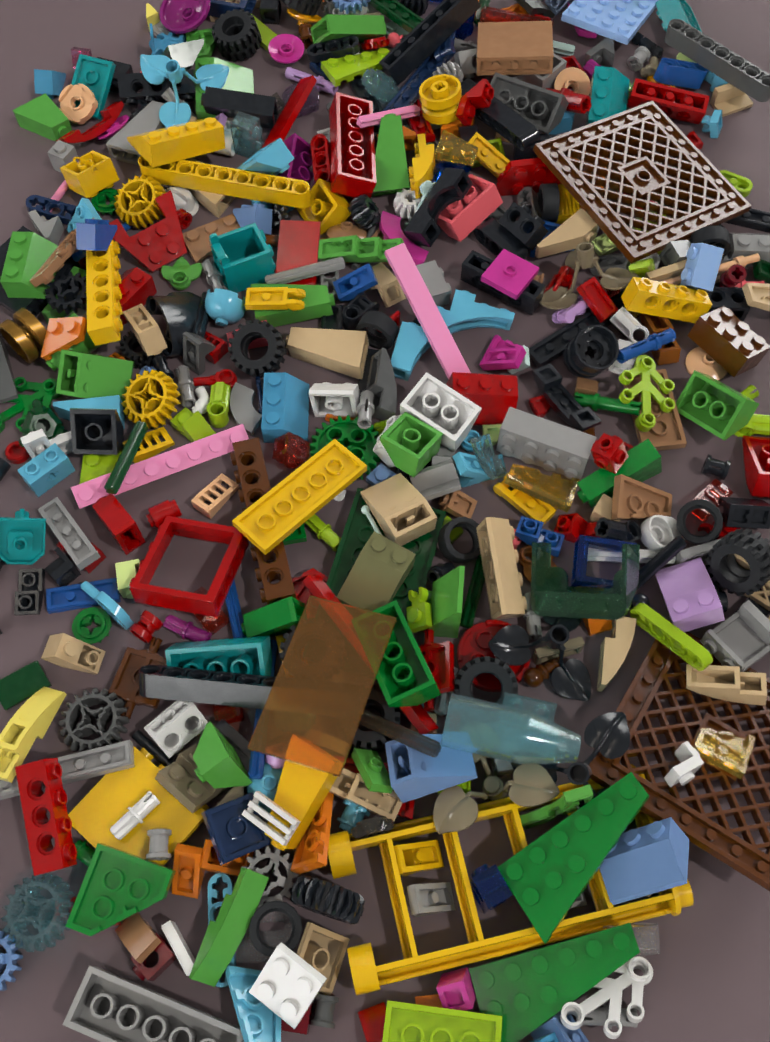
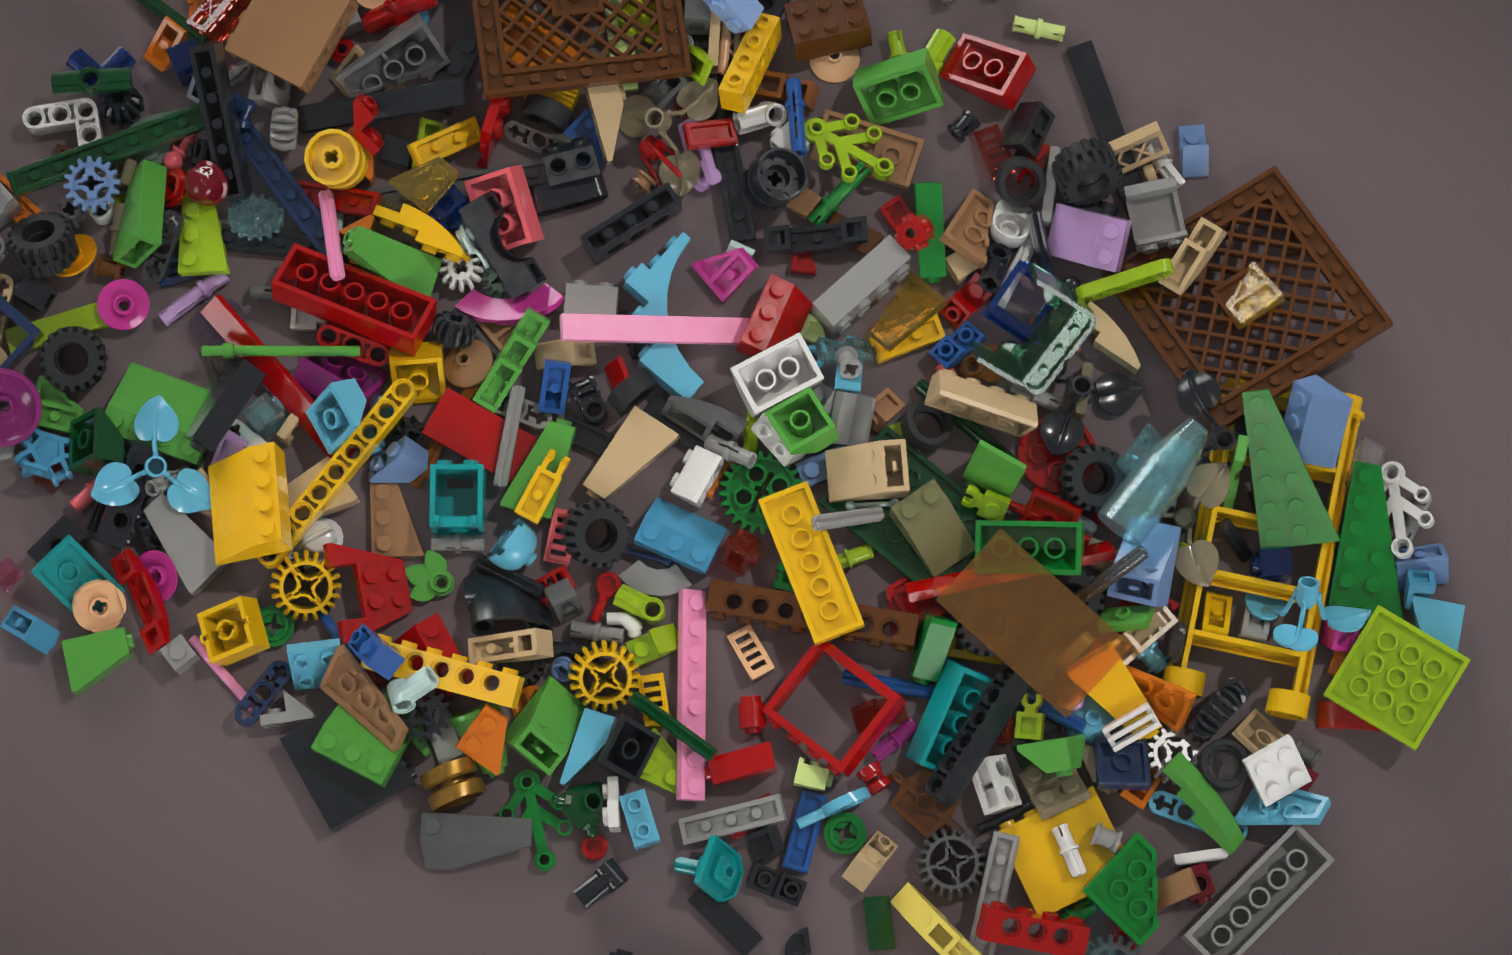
camera: 65 degrees left, 15 degrees up
(76, 267) = (405, 692): none -> light aqua piece
(185, 218) = (349, 541): red bush -> none
(188, 875) = (1132, 820): orange slope -> none
(240, 726) = (1030, 722): none -> lime plate
(244, 154) = (285, 433): none -> tan tile
(281, 97) = (228, 350): none -> bright green bar
(350, 506) = (847, 518): none -> light grey axle
(383, 45) = (206, 184): none -> dark red helmet
(424, 944) = (1306, 594): none -> medium azure plant
(437, 572) = (953, 466): black pin -> none
(479, 454) = (848, 361): none -> light grey bush
(496, 842) = (1235, 540): none -> black axle
(509, 274) = (637, 213): dark pink plate -> none
(534, 676) = (1097, 425): reddish brown bar -> none
(685, 771) = (1253, 333): white bracket -> none

